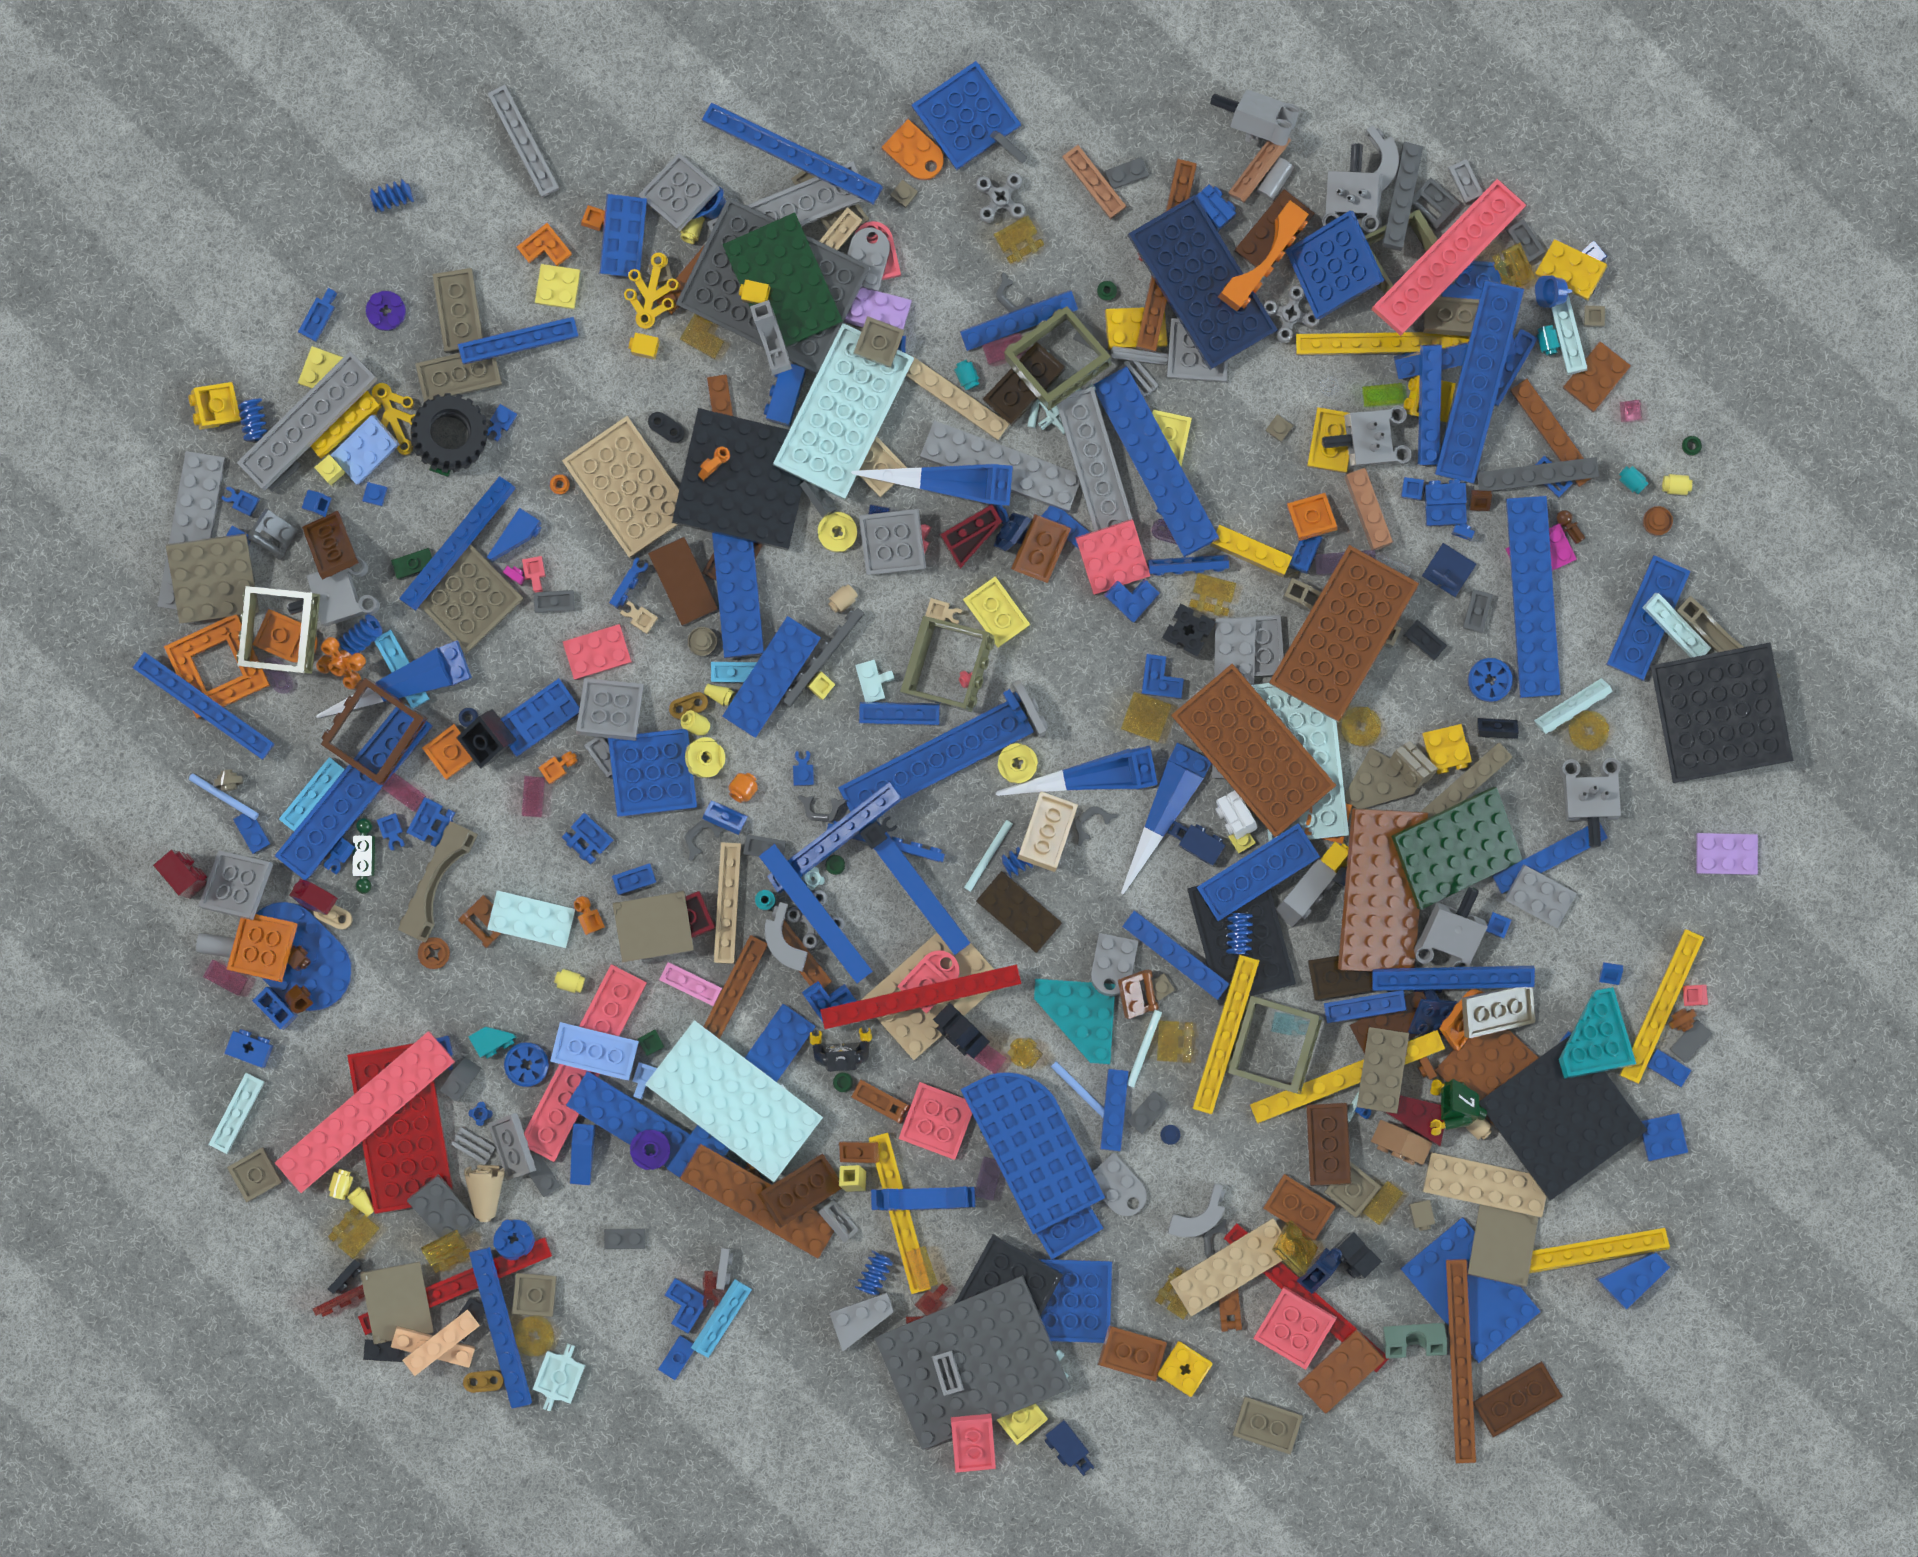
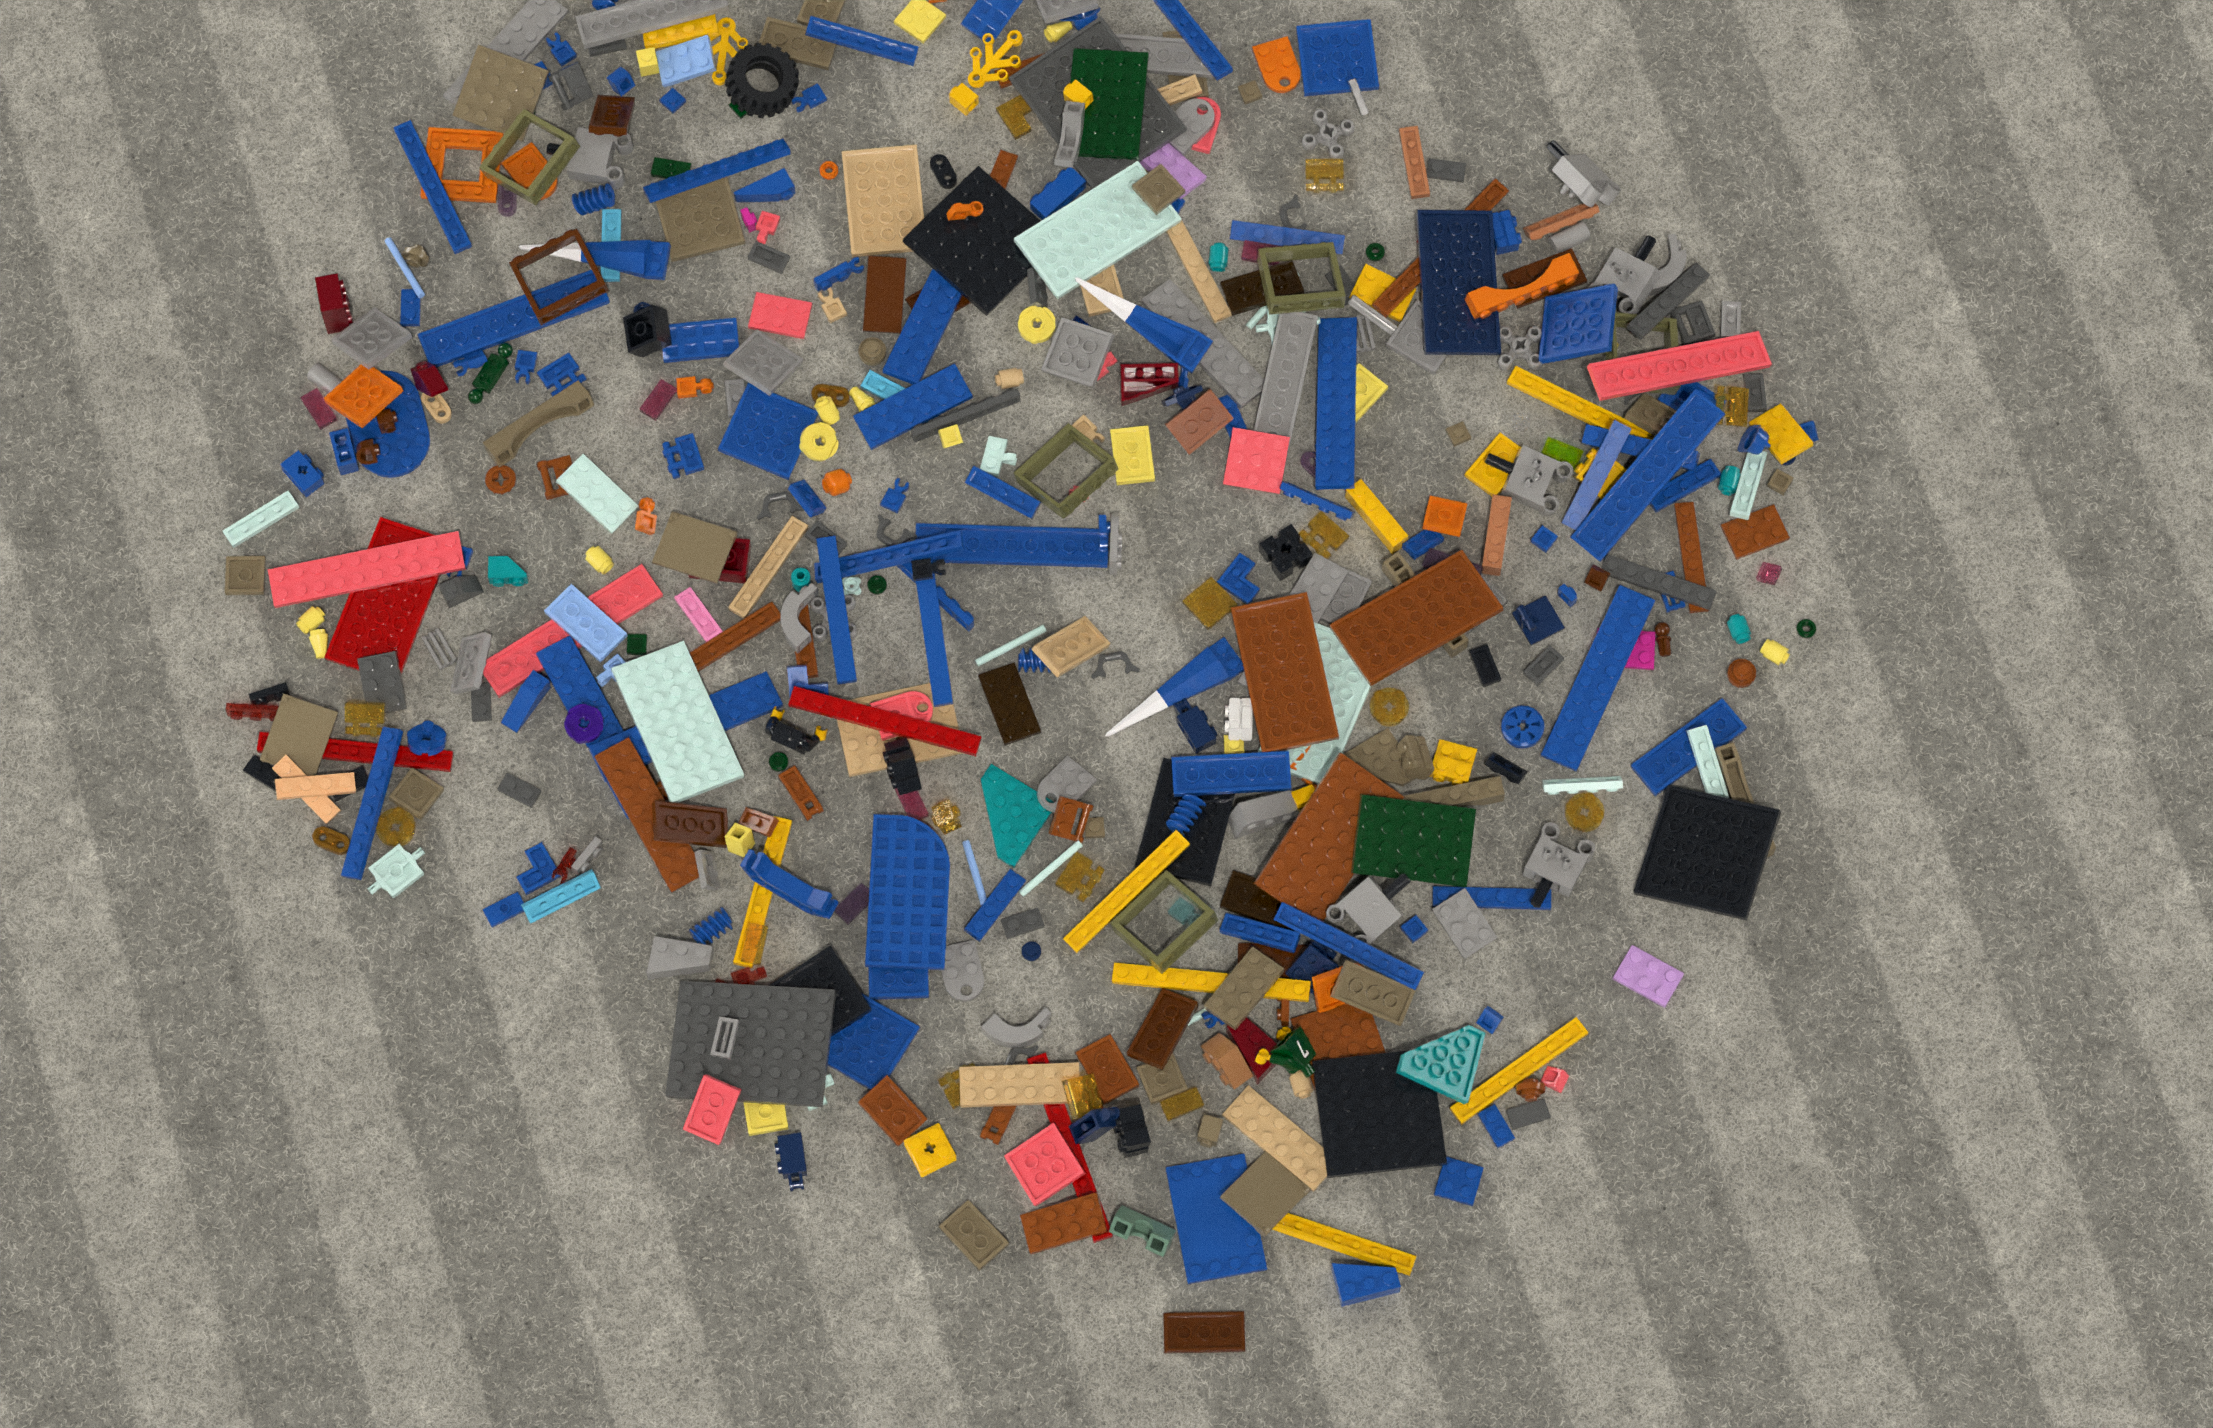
camera: 25 degrees right, 15 degrees down
(311, 794) = (477, 302): medium azure plate -> none
(340, 662) = (564, 210): orange gear -> none
(358, 1237) = (300, 669): clear yellow plate -> none
(404, 792) = (553, 340): clear pink plate -> none
(448, 752) = (609, 329): orange plate -> none
(475, 1113) = (458, 622): blue plate -> none
(484, 1190) = (426, 686): tan cone -> none
(522, 1076) = (530, 616): blue wheel -> none
(634, 879) = (702, 508): blue plate -> none
(936, 1121) = (838, 834): coral plate -> none
(1022, 753) = (1071, 576): light yellow plate -> none
(1115, 771) = (1162, 633): blue plate -> none
(1133, 603) = (1249, 506): blue plate -> none
(1176, 955) = (1122, 806): blue plate -> none
(1445, 503) = (1566, 564): blue plate -> none
(1460, 1360) = (1172, 1270): dark orange plate -> none

